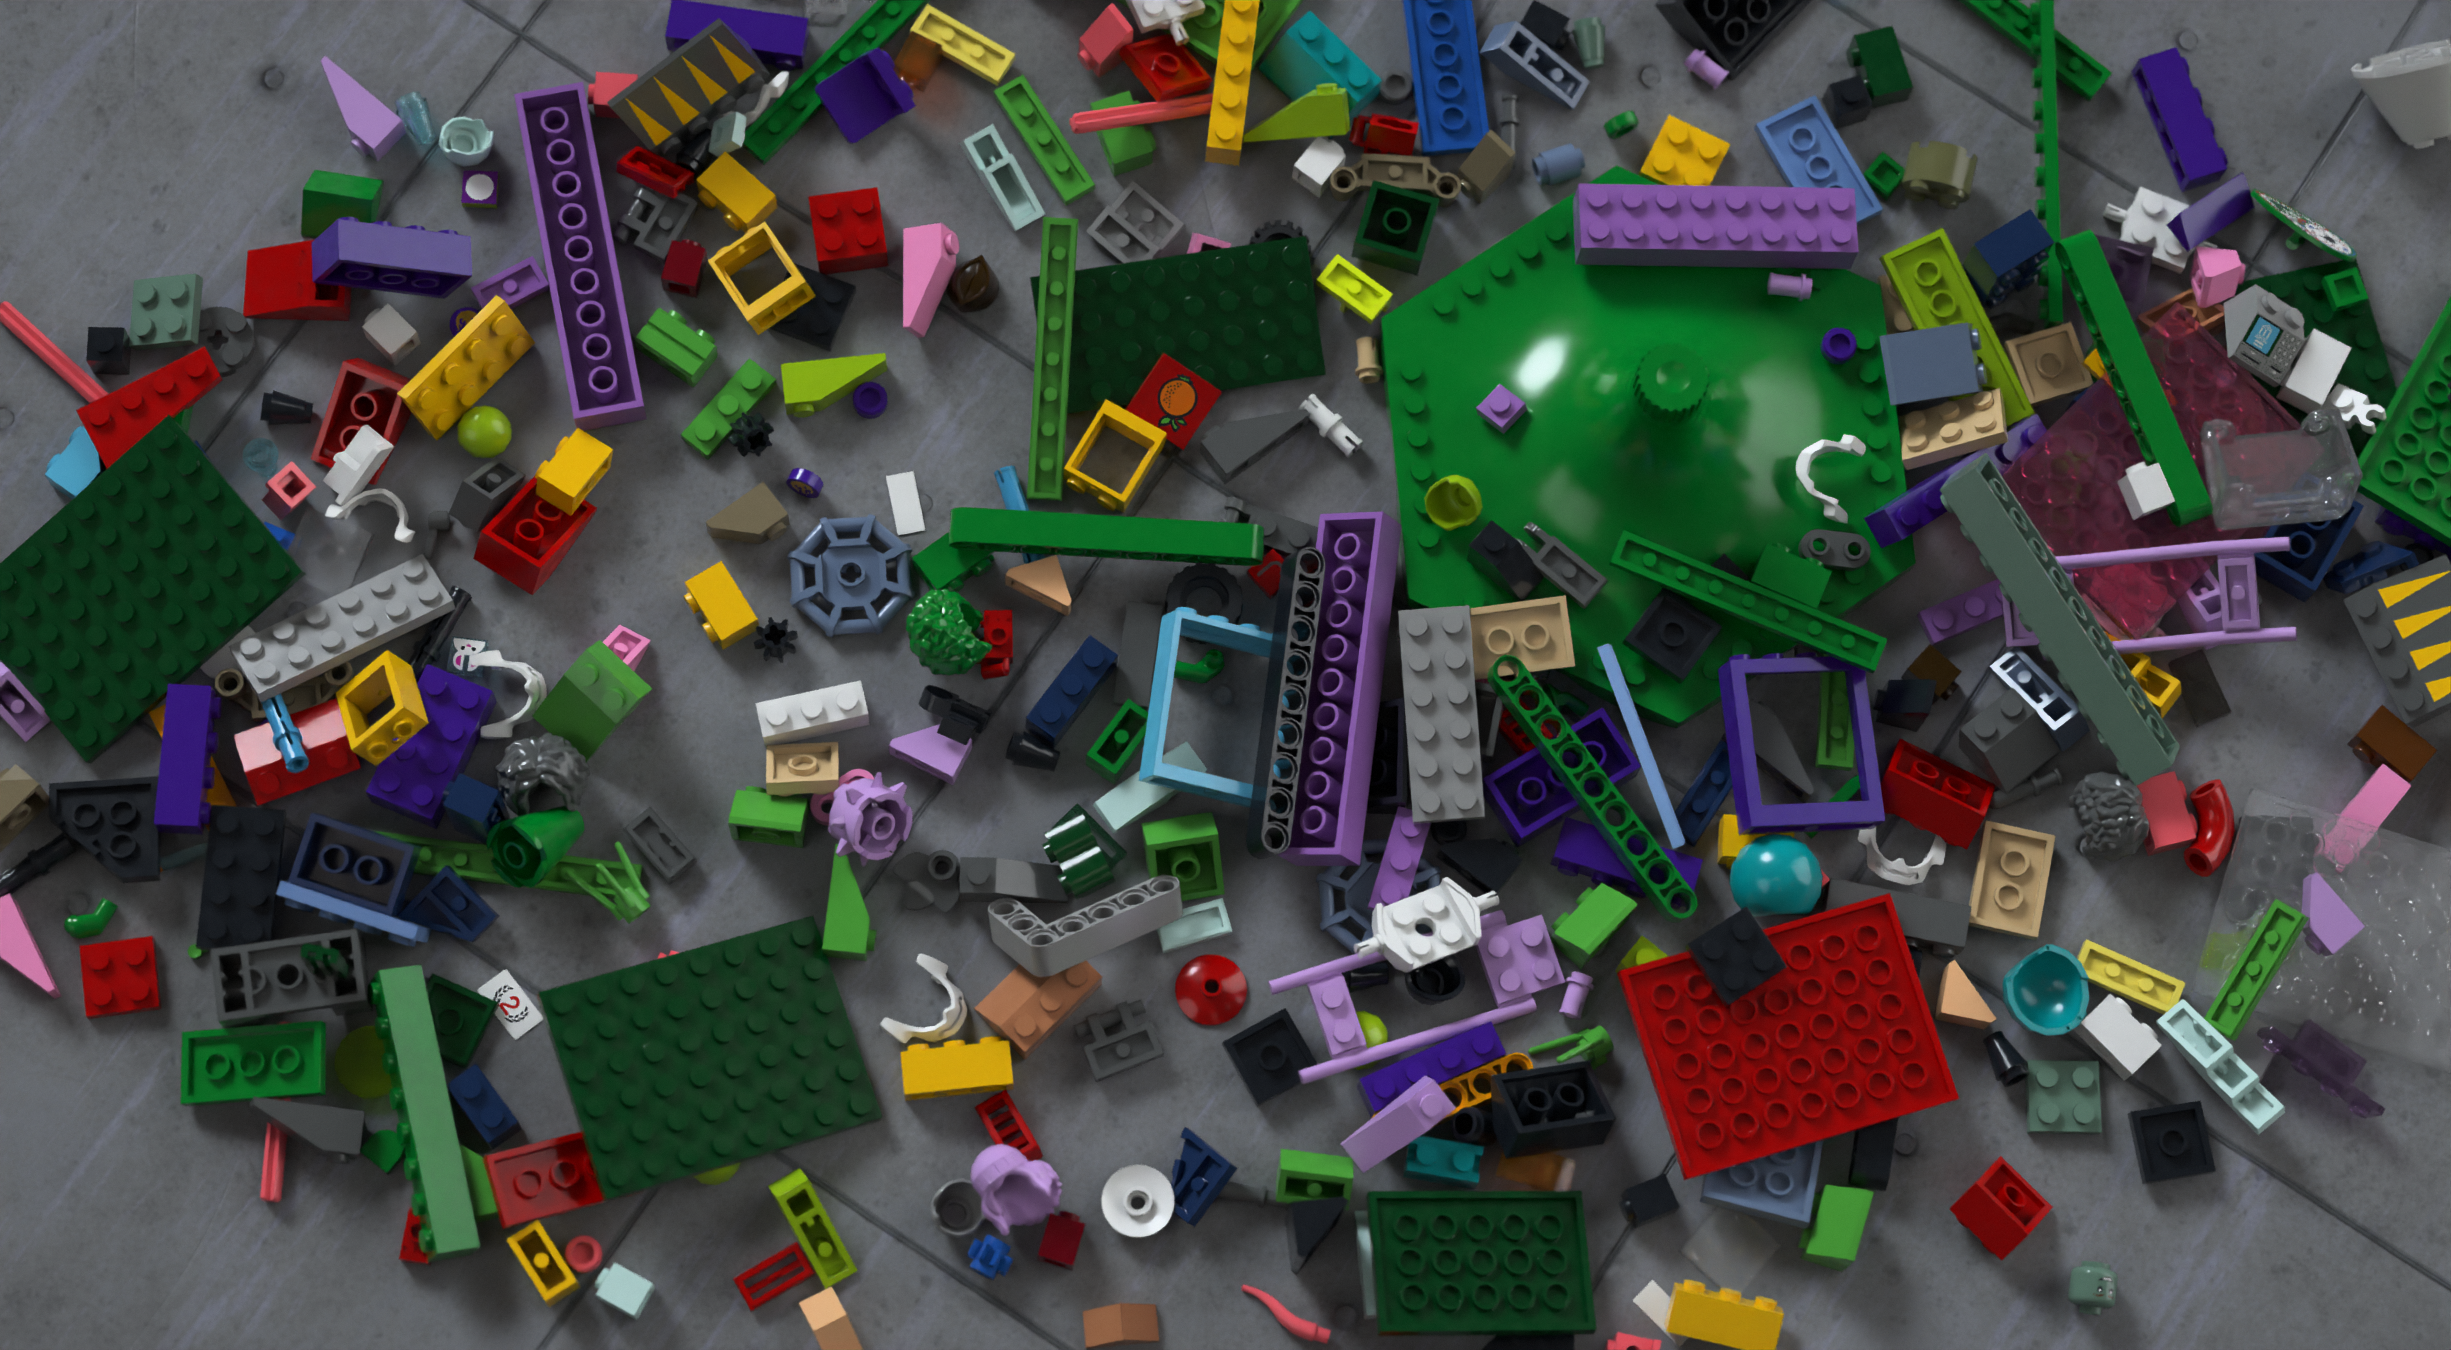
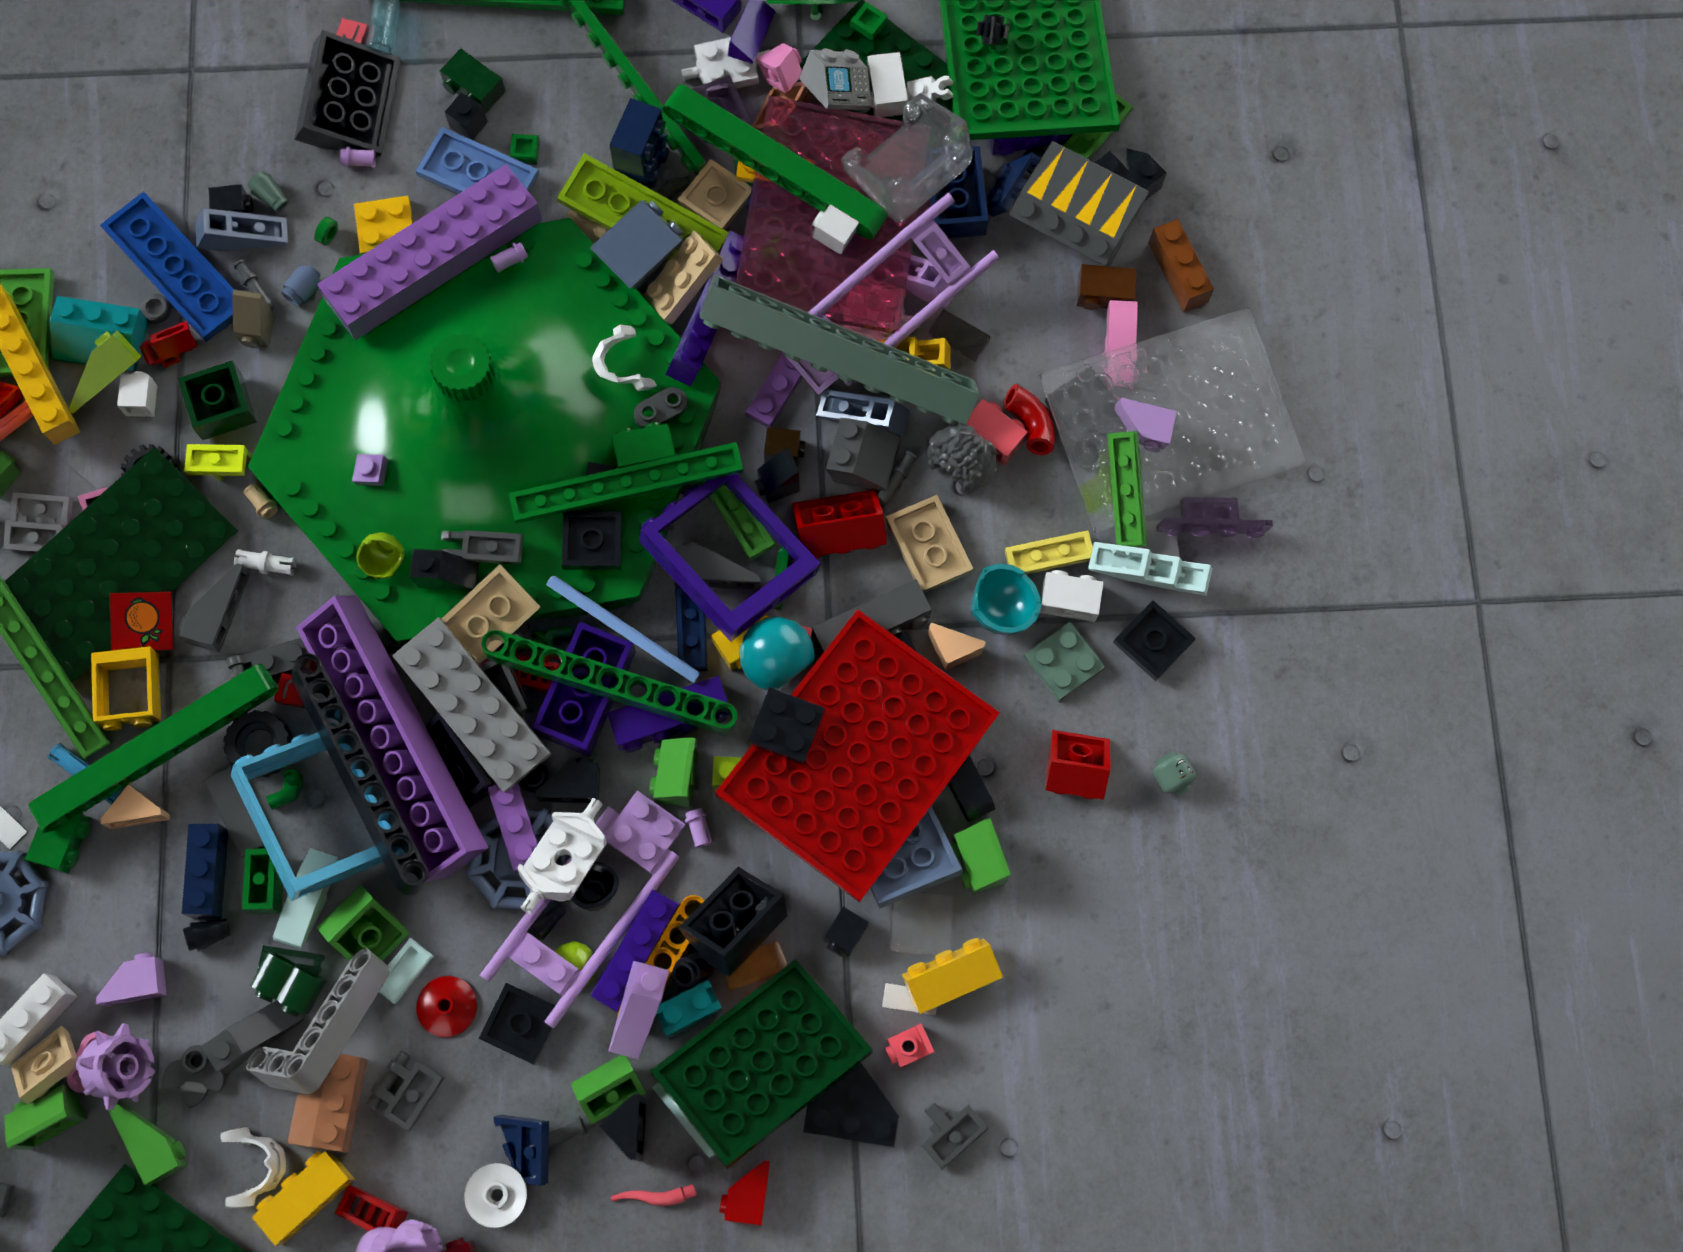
camera: 30 degrees left, 0 degrees up
(943, 635) = (82, 895): green hair -> none
(957, 715) = (131, 947): black piece -> none
(999, 634) = (130, 875): red piece -> none
(1400, 171) = (197, 359): dark tan plate -> none
(1591, 1045) = (732, 854): bright green plant -> none
(1838, 346) = (569, 274): dark purple tile -> none
(1898, 870) = (851, 590): white helmet -> none
(1939, 174) = (558, 121): olive brick -> none
(2005, 1060) = (1010, 664): black cone -> none

